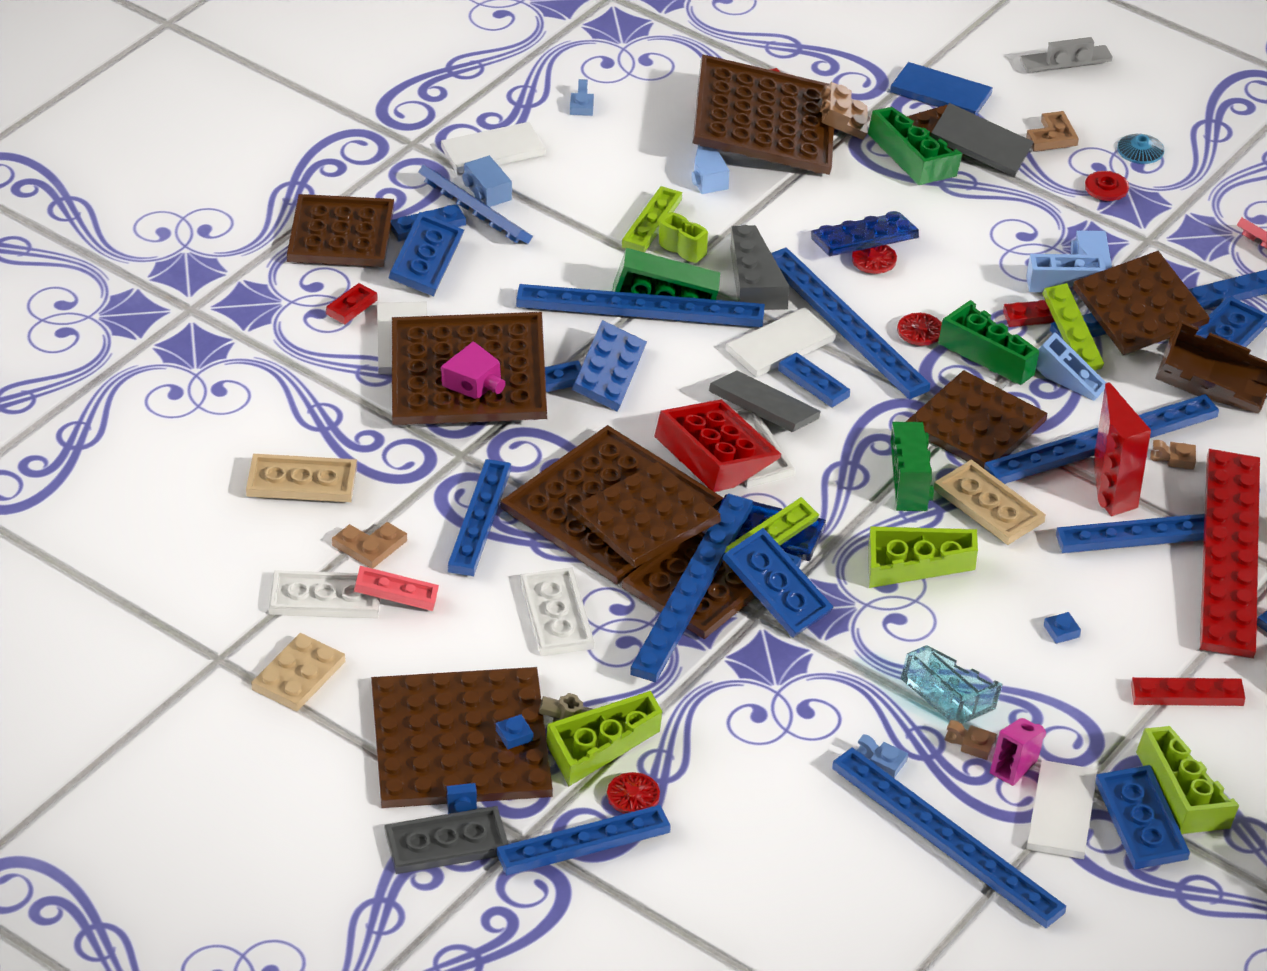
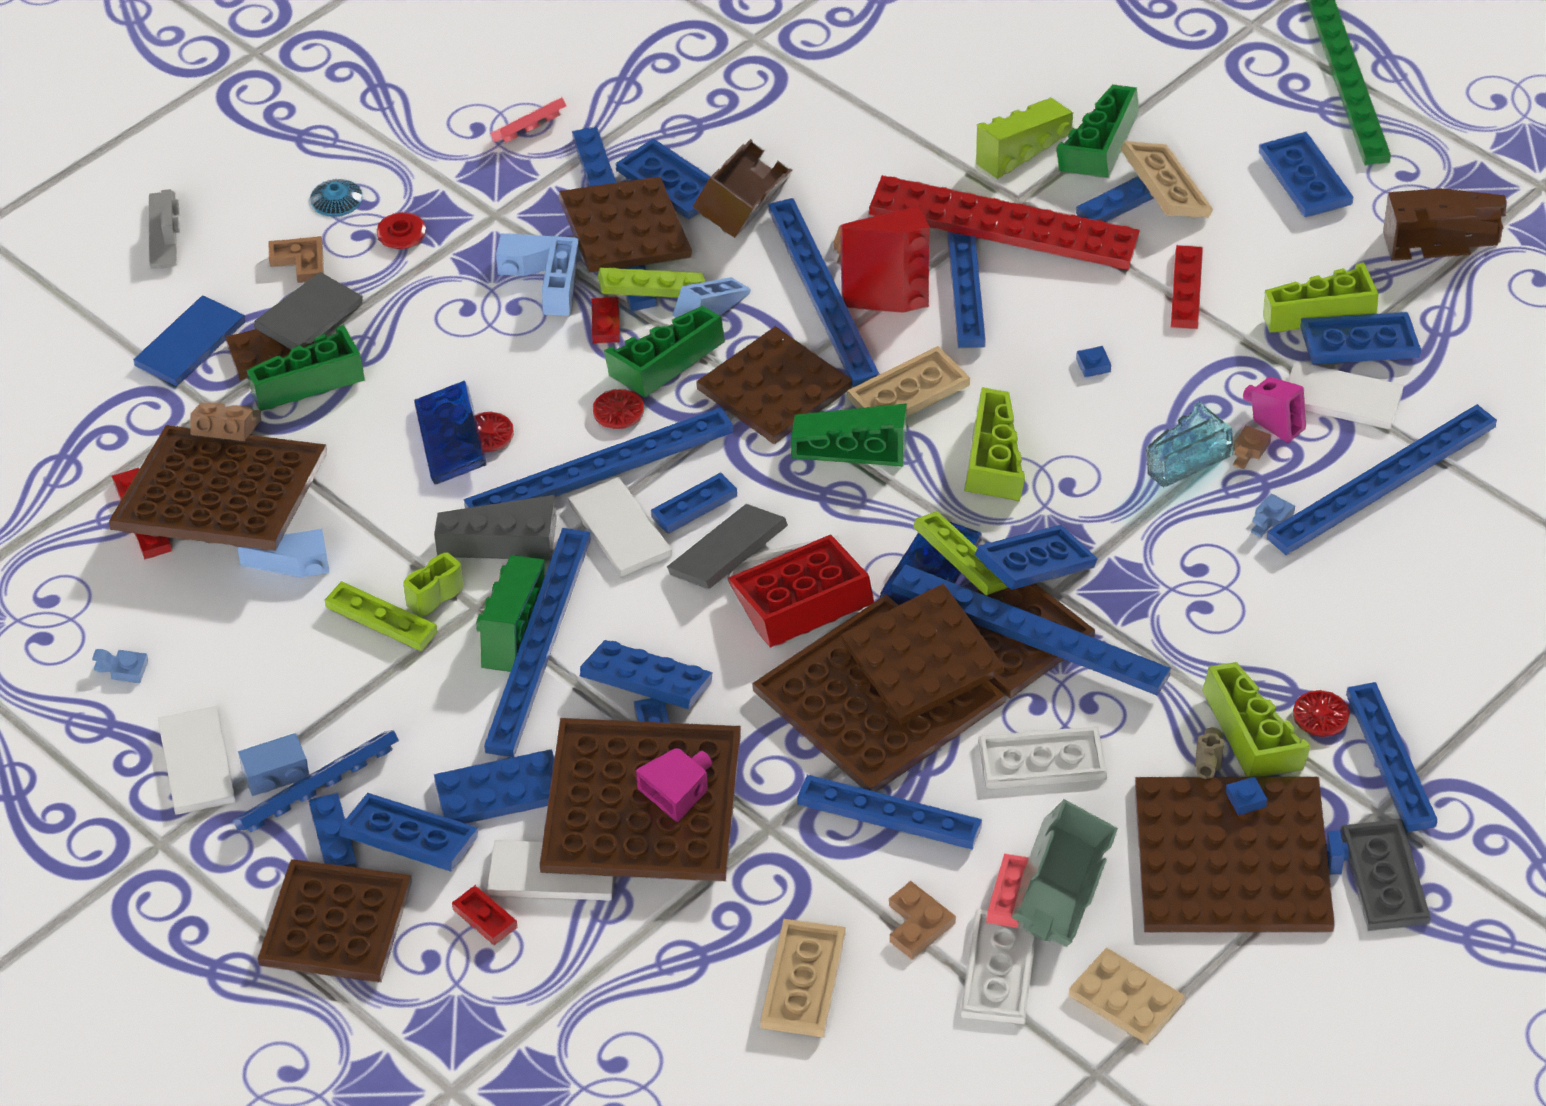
camera: 80 degrees left, 5 degrees up
(406, 608) = (1062, 872): none -> sand green piece
(478, 291) = (496, 787): none -> blue plate

